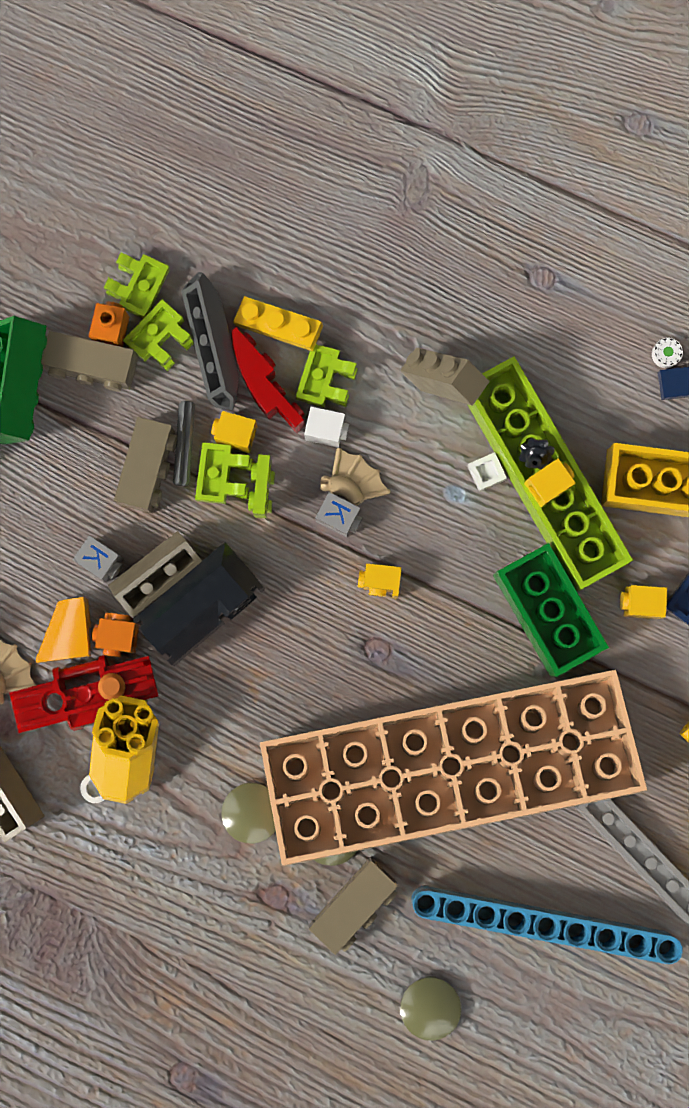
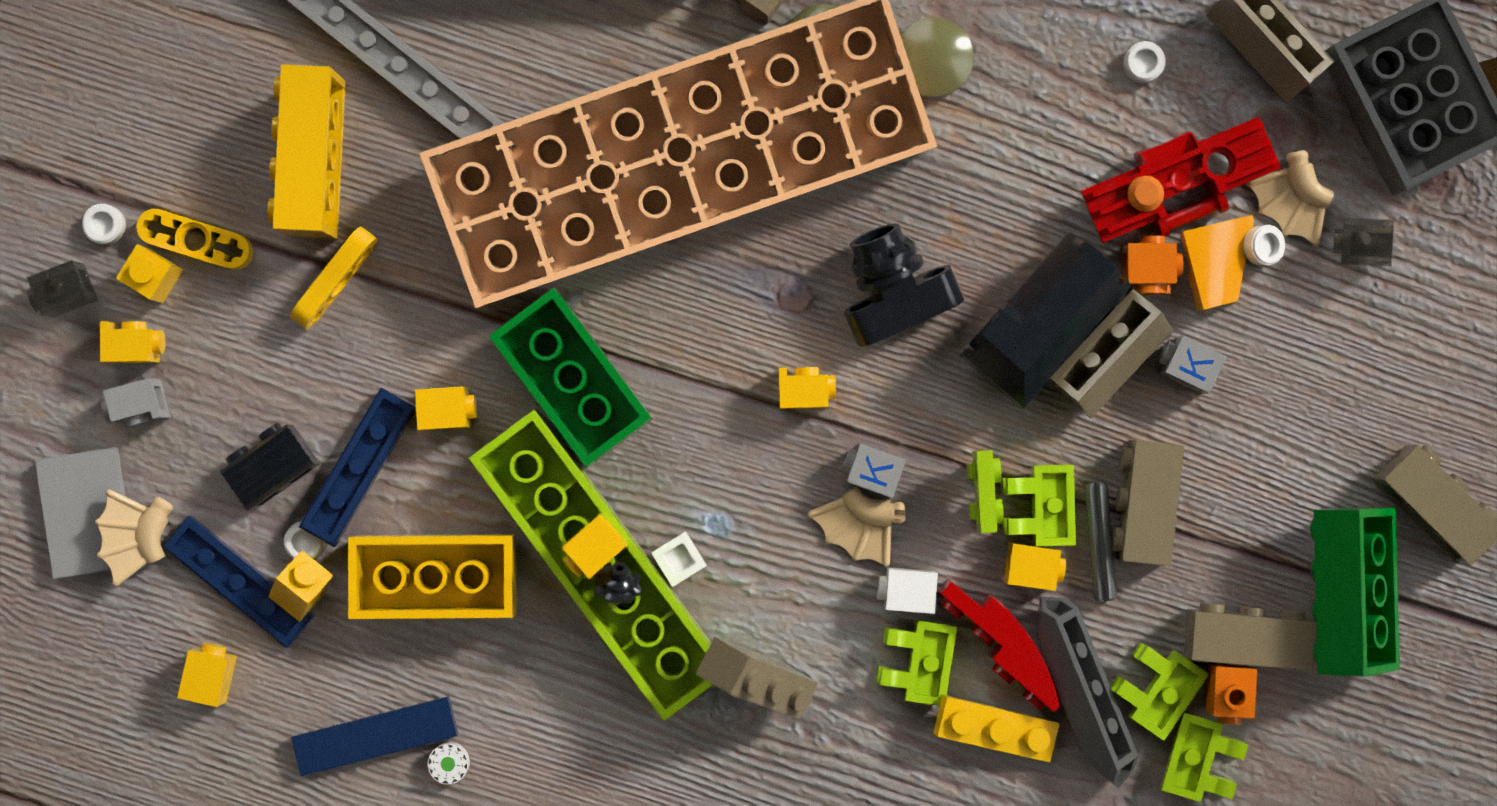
camera: 175 degrees right, 5 degrees up
(31, 639) = (1264, 245): none -> white tile
(123, 749) = (1116, 113): yellow brick -> none
(300, 635) = (886, 263): none -> black beam

